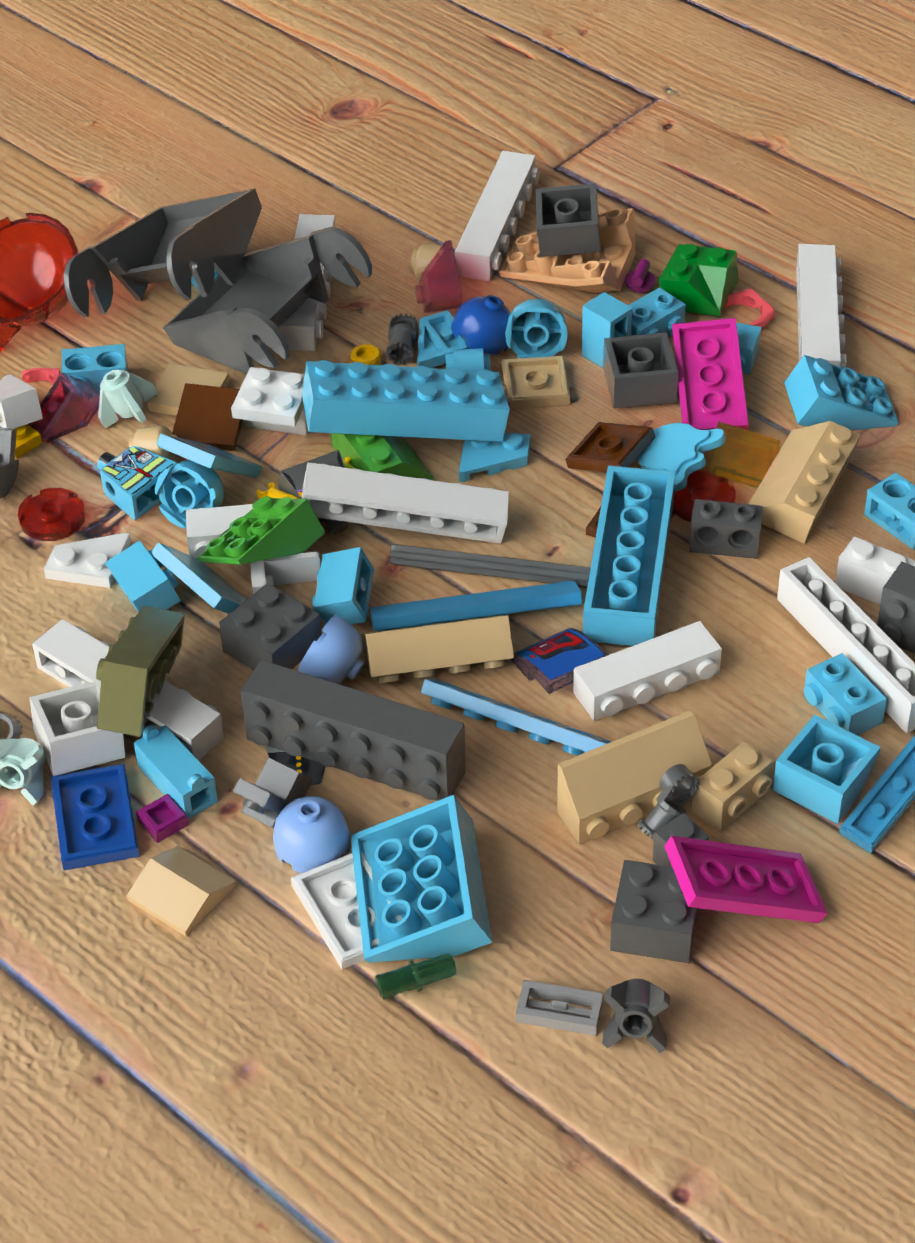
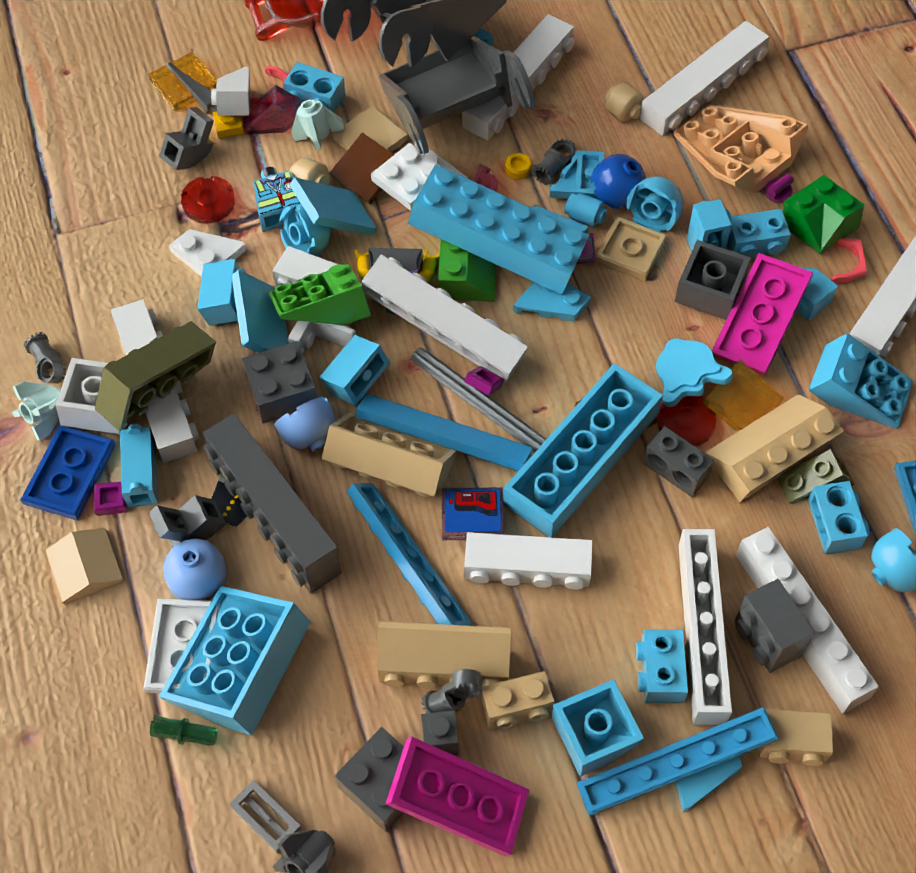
camera: 30 degrees right, 15 degrees up
(440, 283) = (612, 123): clear pink slope -> none
(481, 544) = (484, 380): none -> magenta tile
(567, 220) = (742, 114): dark grey brick -> none
(610, 446) = (642, 340): reddish brown tile -> none
(851, 492) = (821, 470): none -> olive bracket

